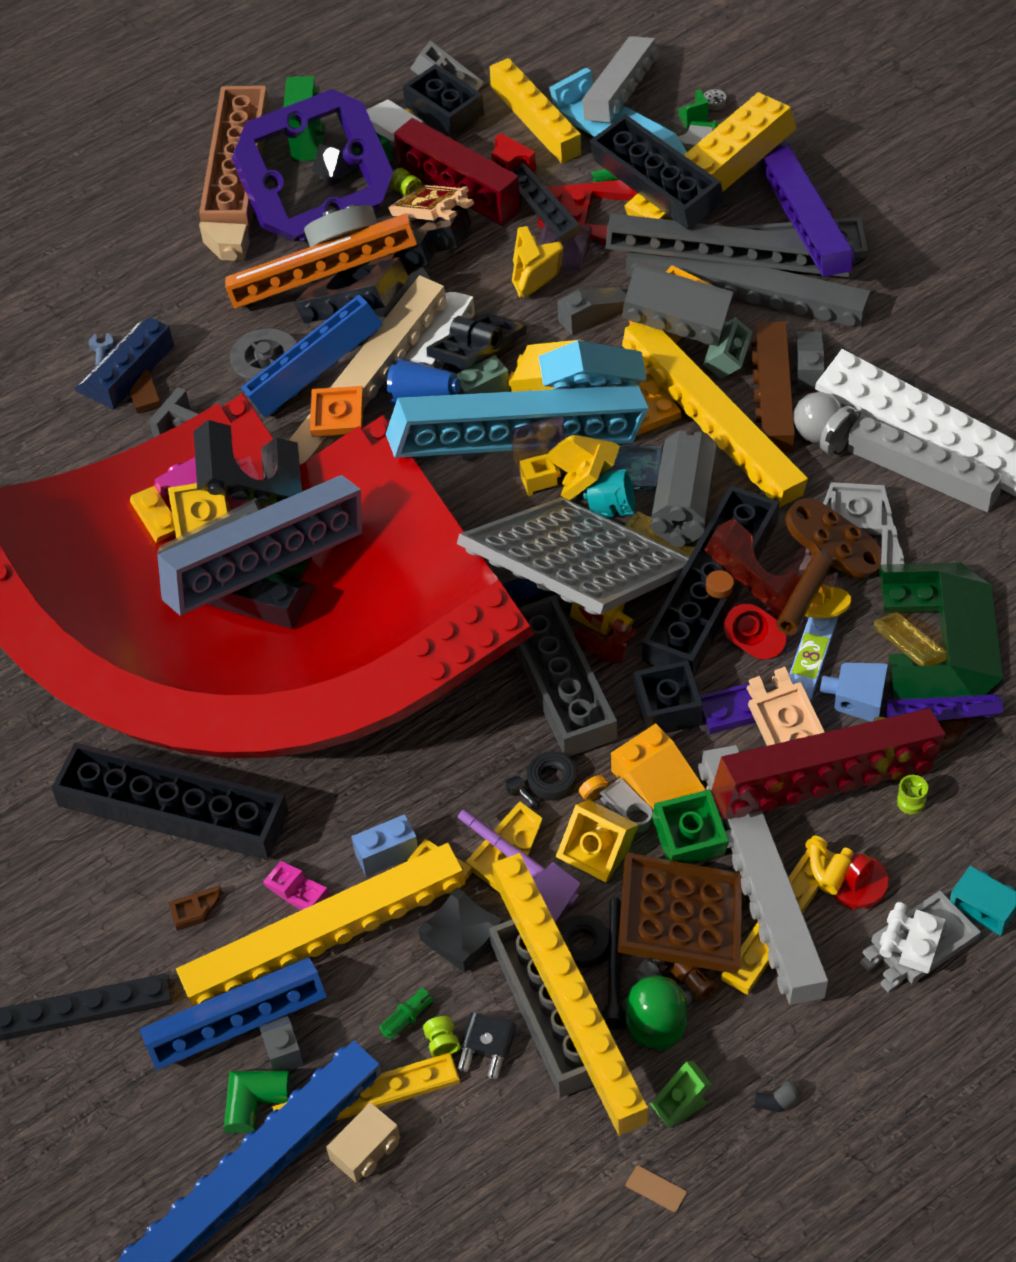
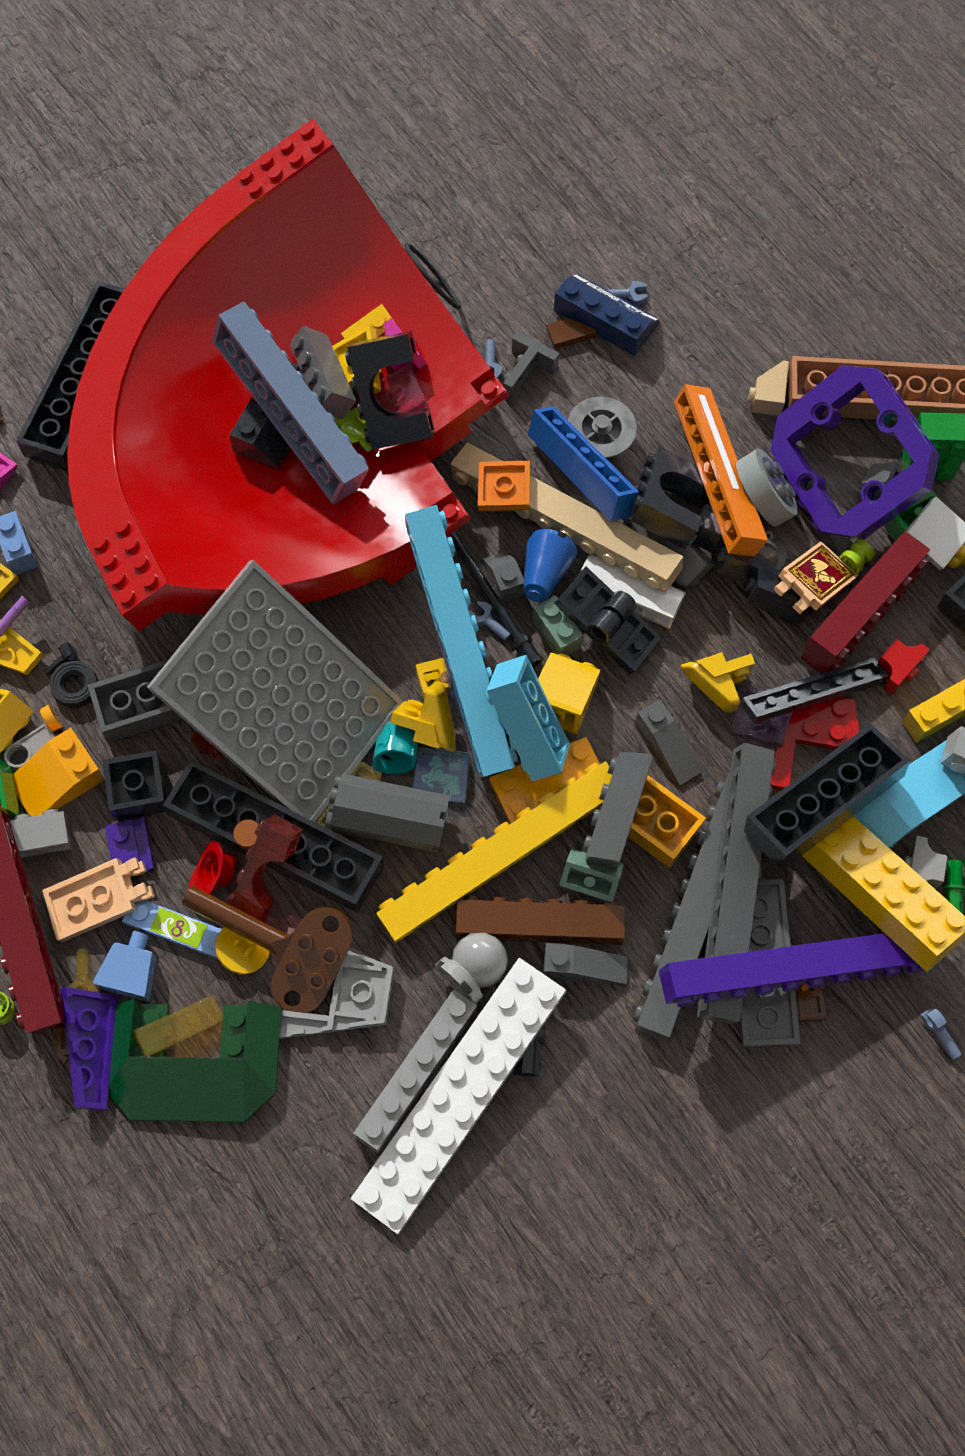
camera: 85 degrees right, 15 degrees up
(833, 138) = (936, 1023): none -> sand blue bar

